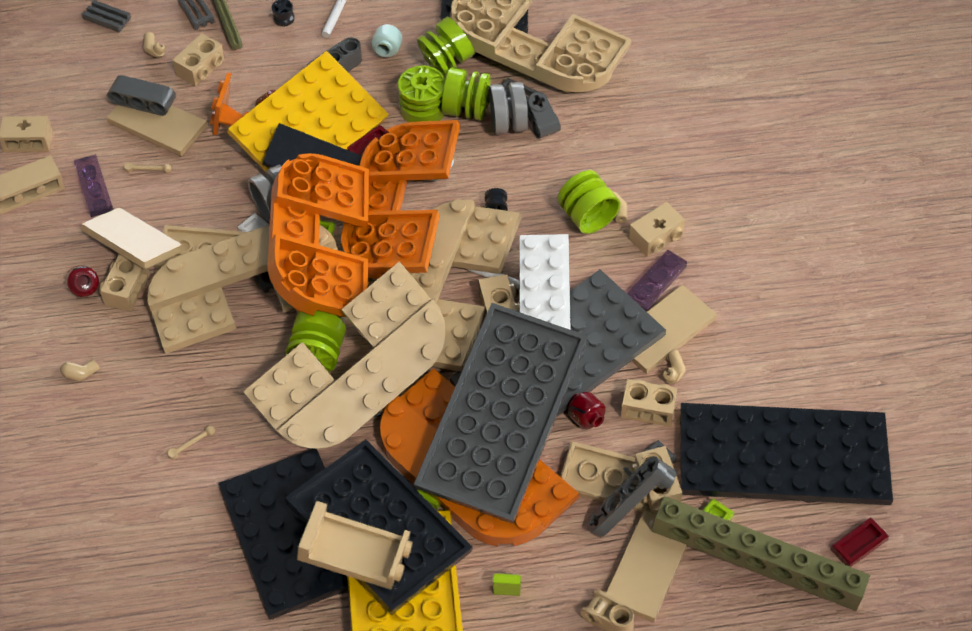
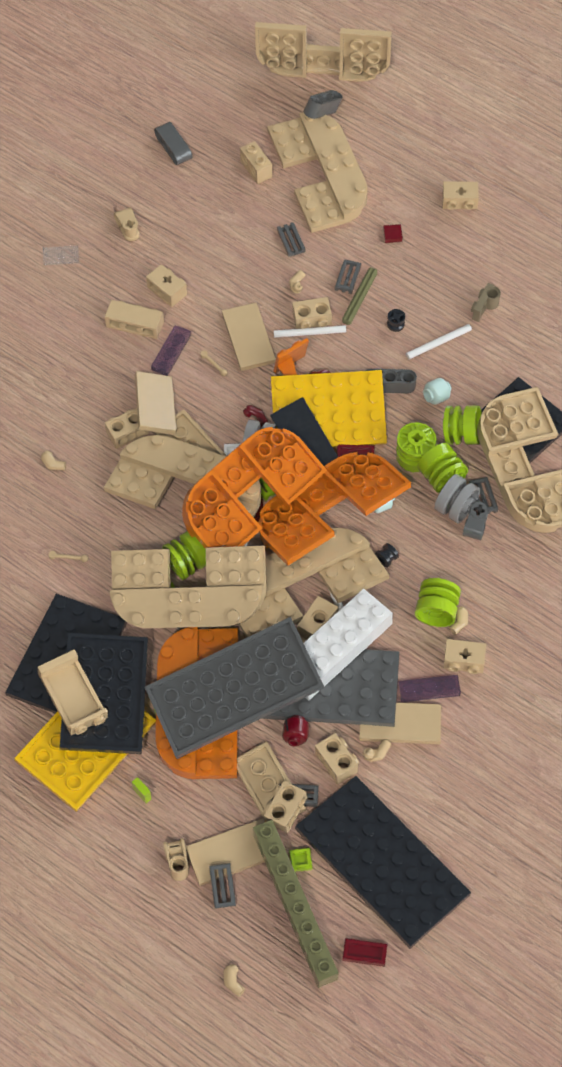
camera: 45 degrees right, 5 degrees up
(82, 281) = (103, 407): dark red head -> none
(141, 95) = (252, 312): dark grey beam -> none
(211, 77) = (310, 331): none -> white bar
(232, 178) = (258, 413): none -> dark red arm
(649, 475) = (256, 800): dark grey beam -> none
(674, 603) = (230, 883): none -> dark grey tile

